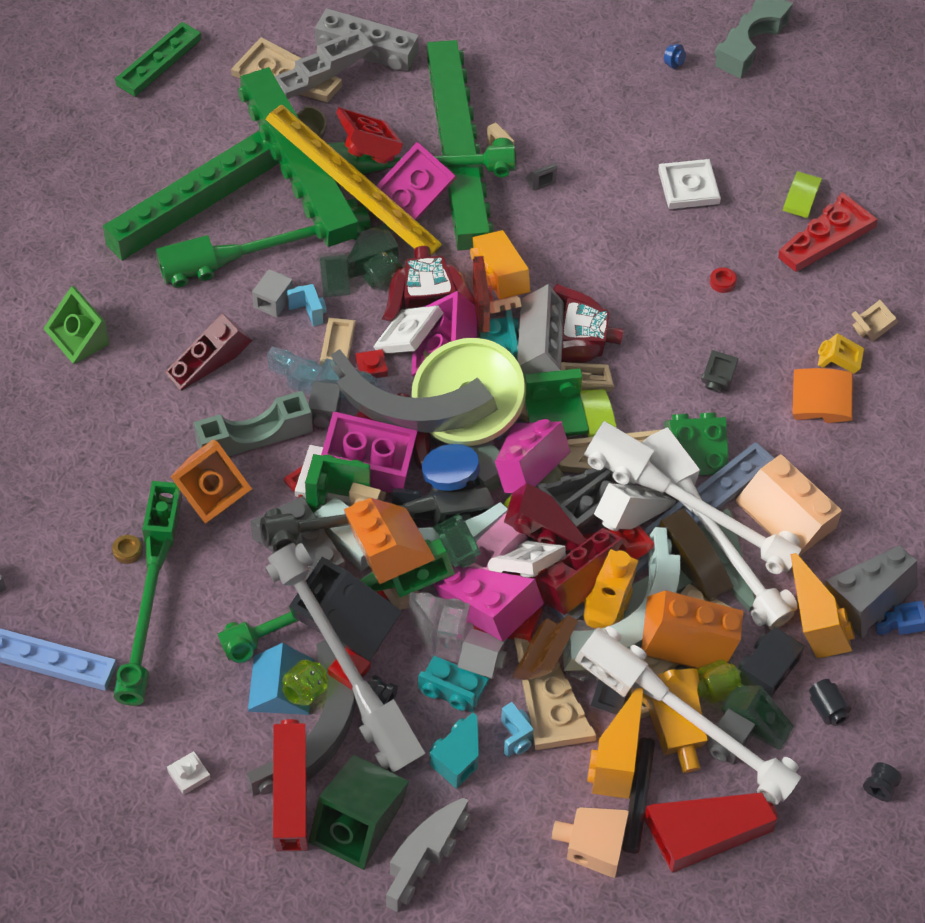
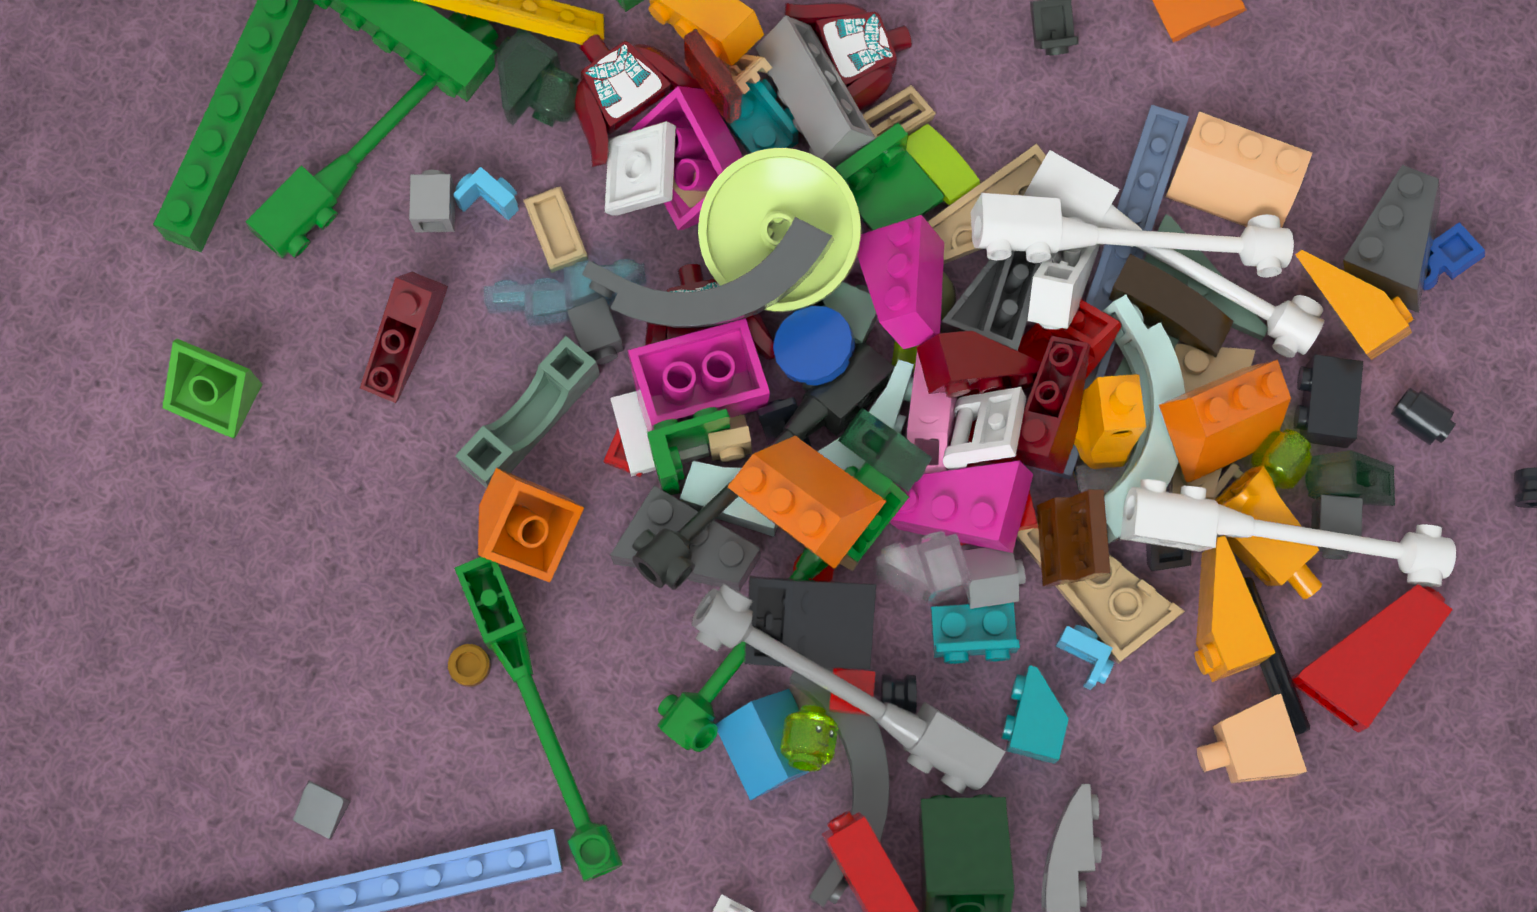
camera: 25 degrees left, 20 degrees up
(334, 274) = (490, 128): clear green slope -> none
(372, 363) = (617, 238): red plate -> none
(702, 439) = (1084, 133): green bracket -> none

